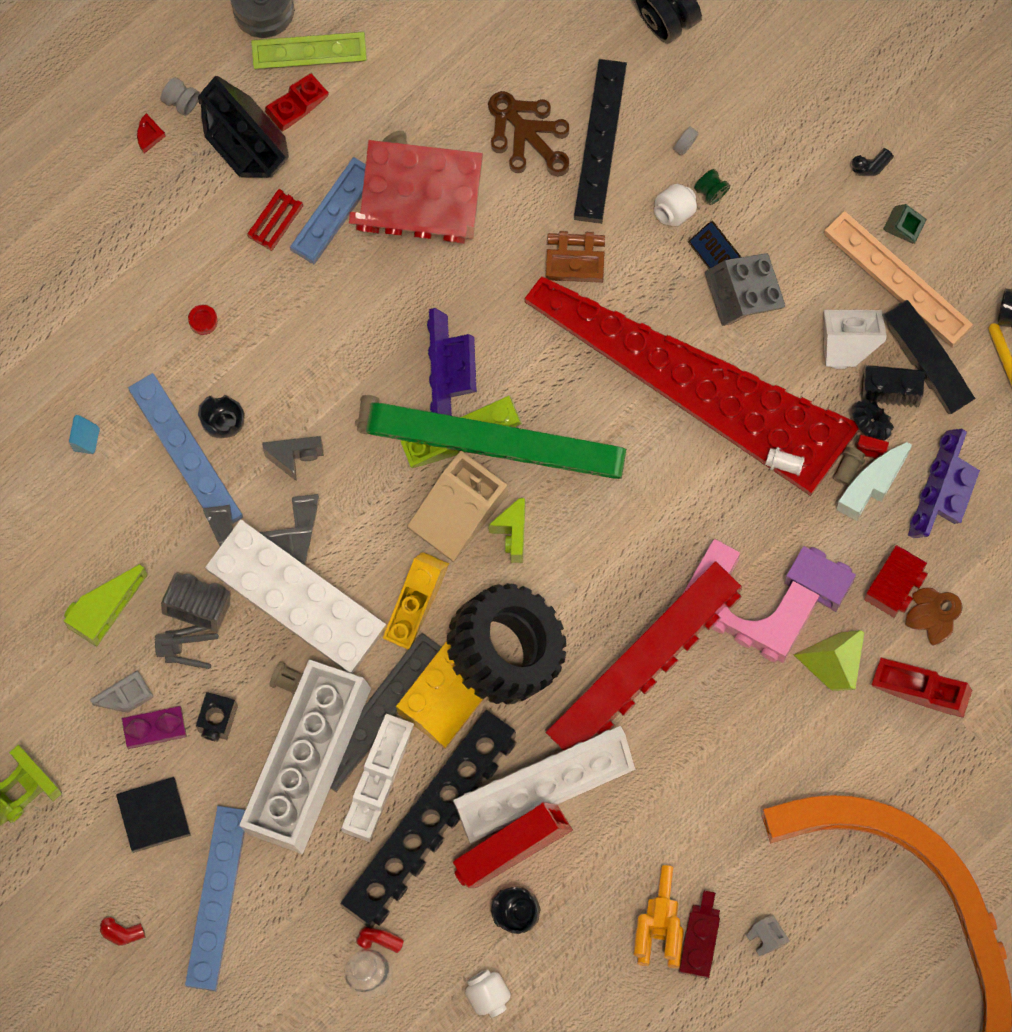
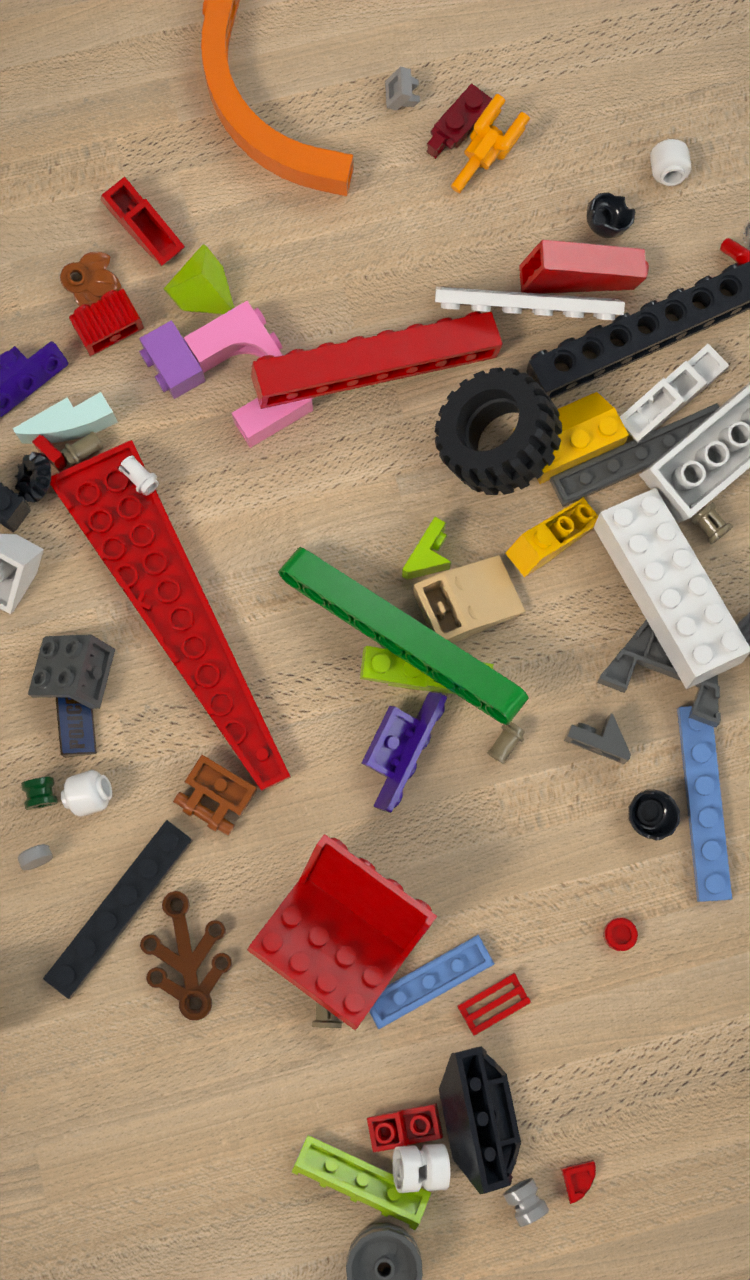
camera: 155 degrees left, 5 degrees up
(269, 77) = (421, 1168): none -> white wheel

